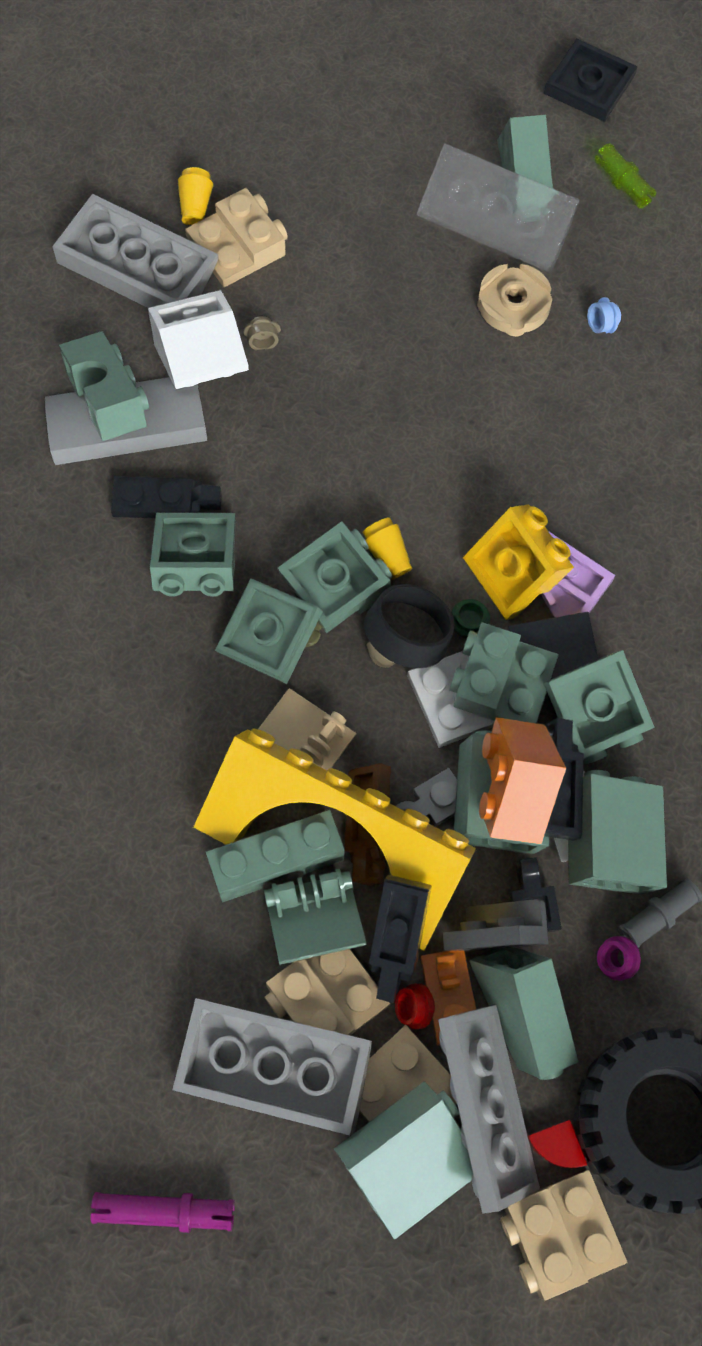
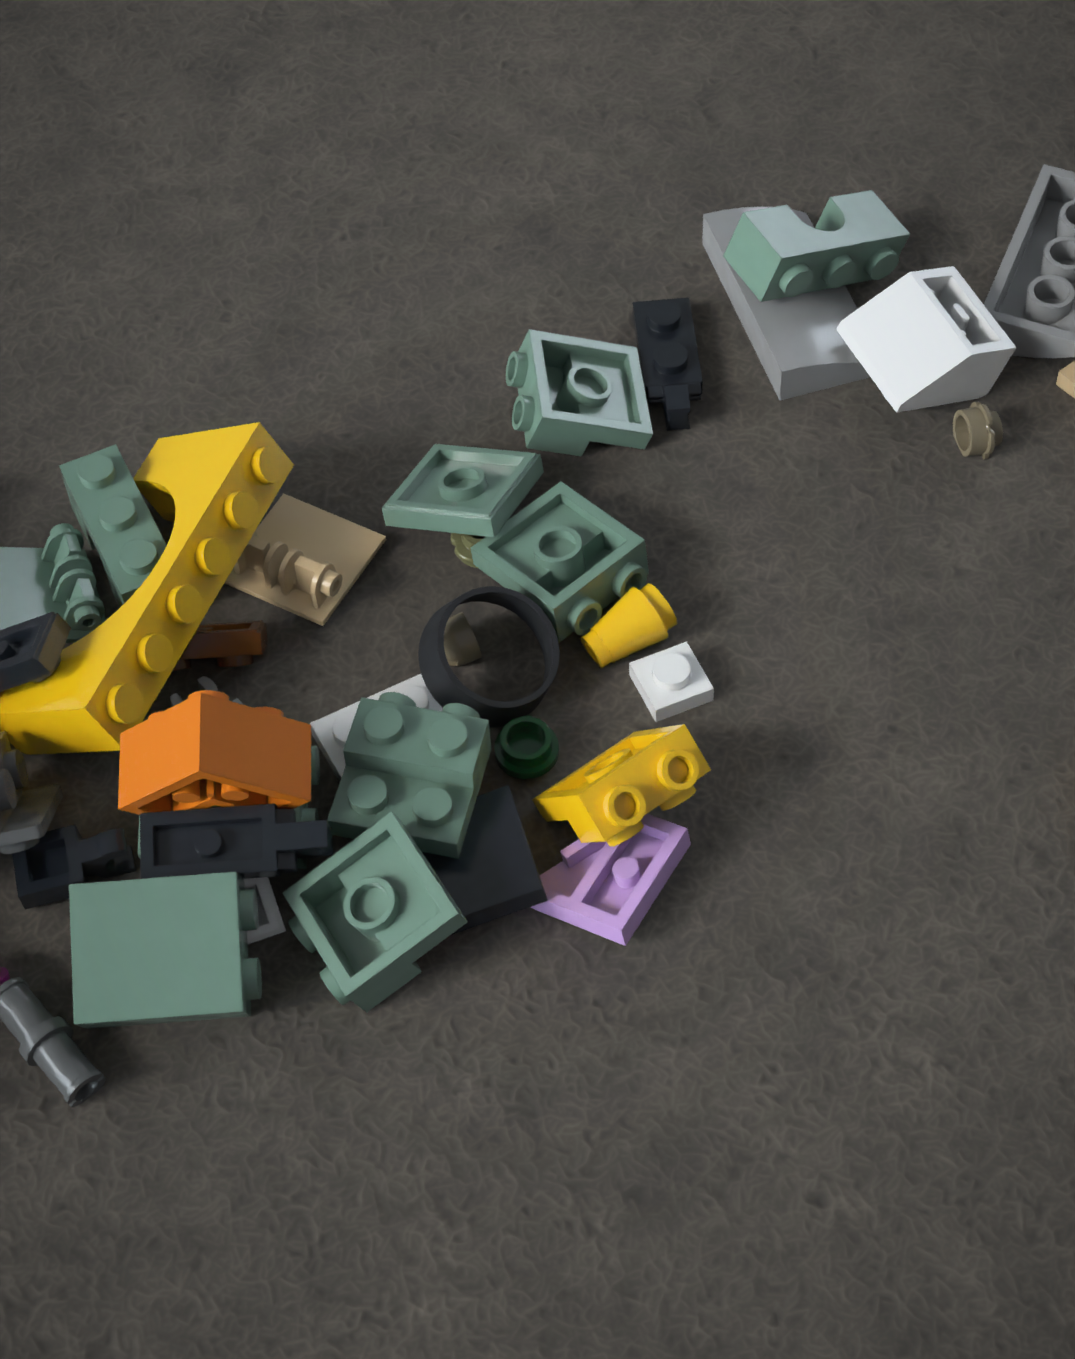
camera: 90 degrees right, 15 degrees down
(427, 532) = (671, 681): none -> white plate

